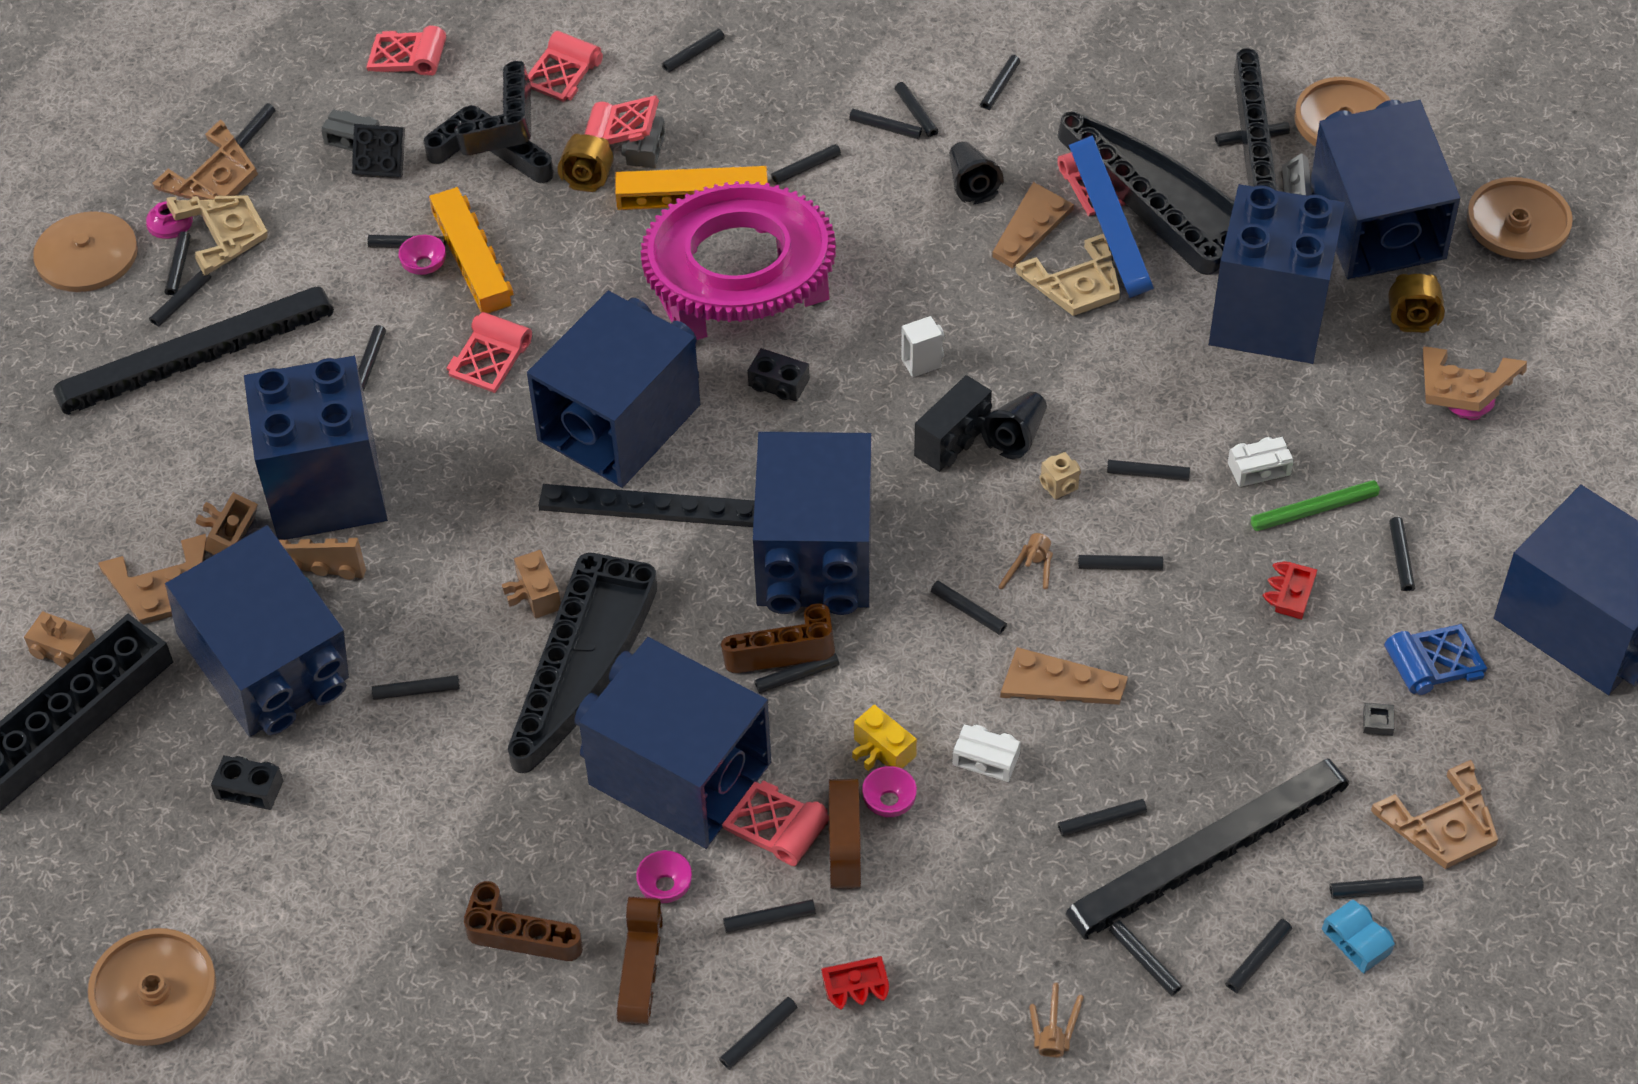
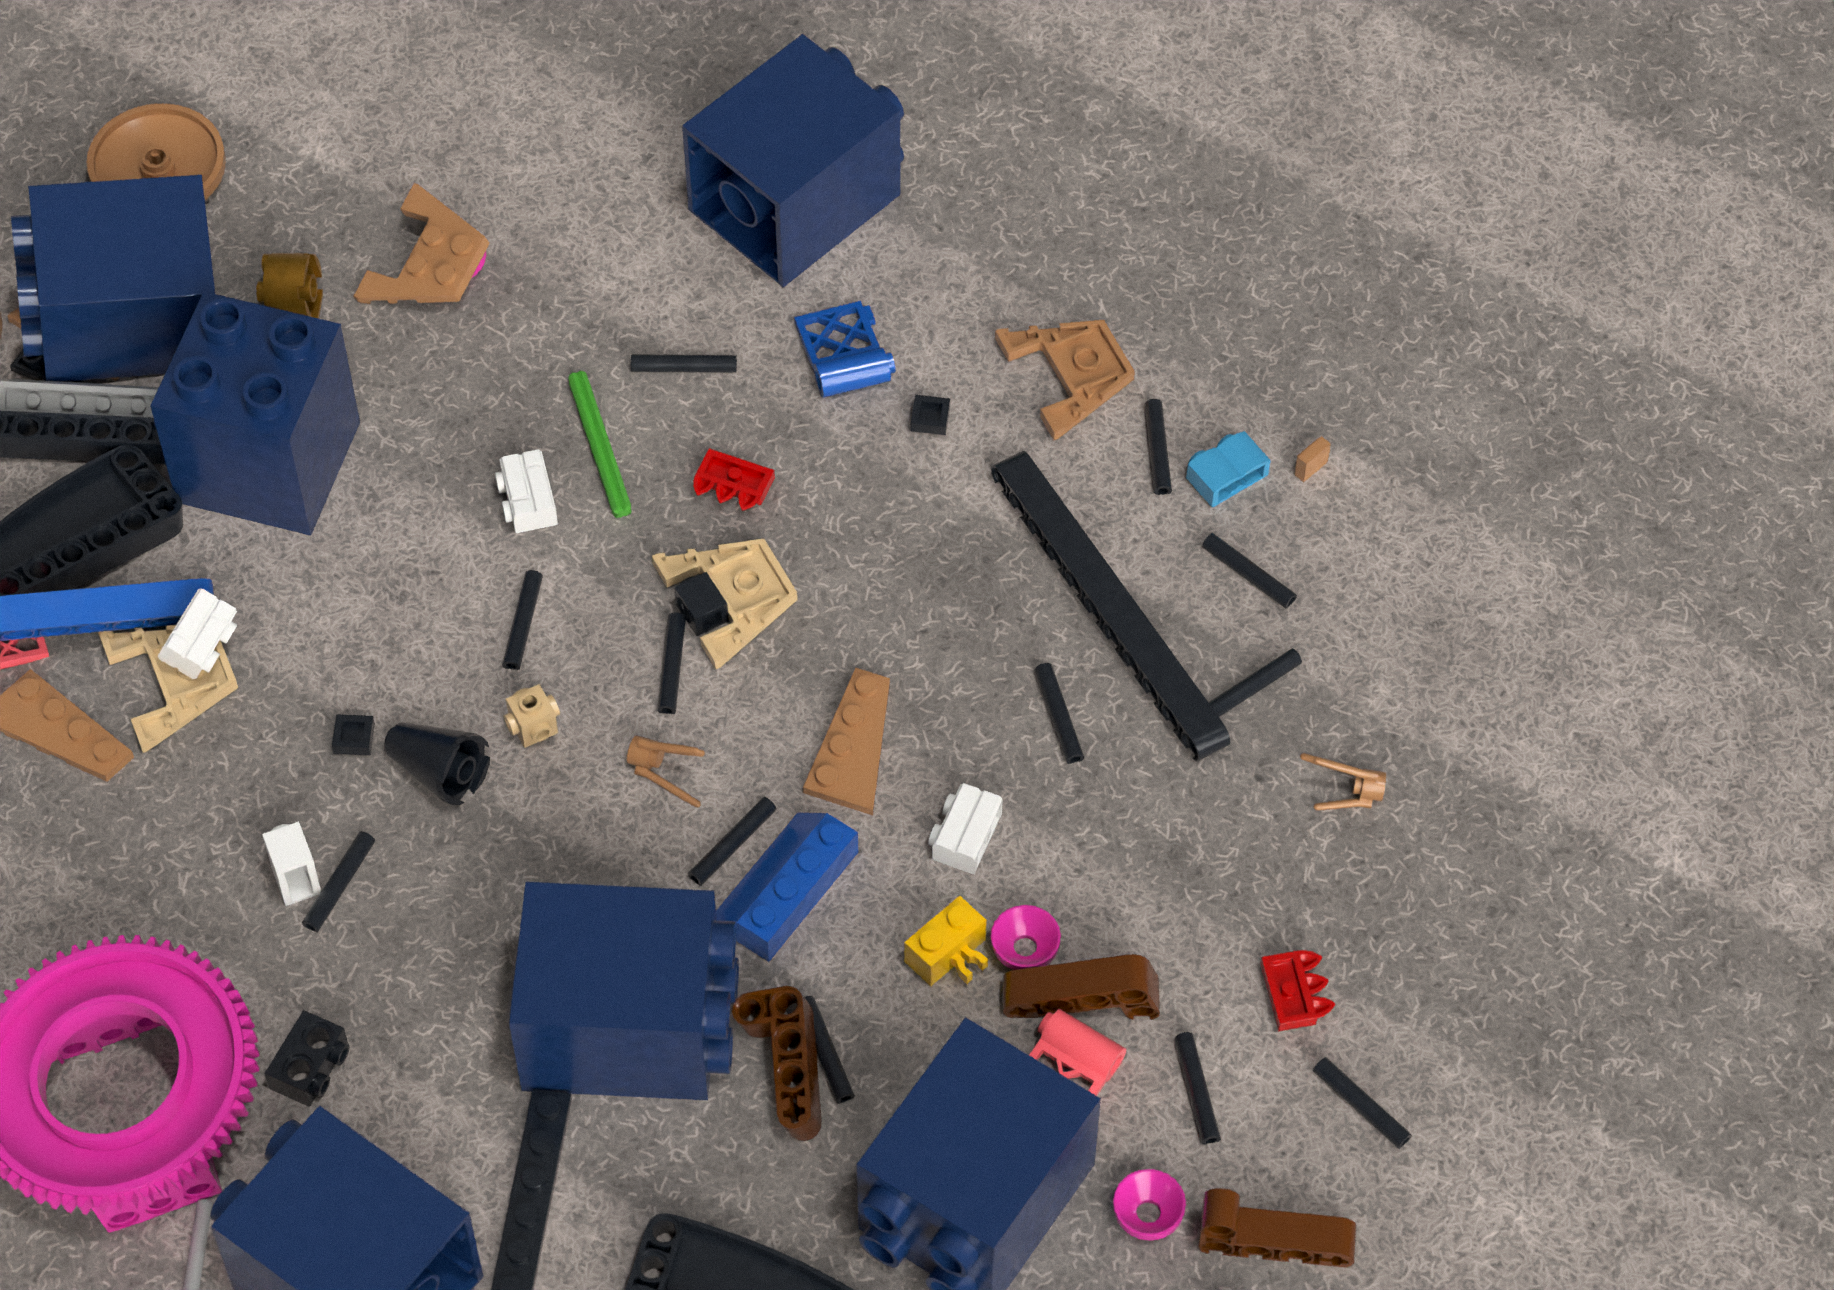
camera: 90 degrees left, 5 degrees up
(914, 381) = (338, 881): none -> black piece
(930, 640) = (788, 881): none -> blue slope
(952, 423) = (437, 830): black brick -> none
(1037, 379) = (353, 734): none -> black plate
(1100, 276) = (198, 633): none -> white brick
(1172, 573) = (701, 603): none -> black brick
(1190, 605) = (748, 581): none -> tan wing
(1378, 1001) = (1312, 458): none -> medium nougat tile

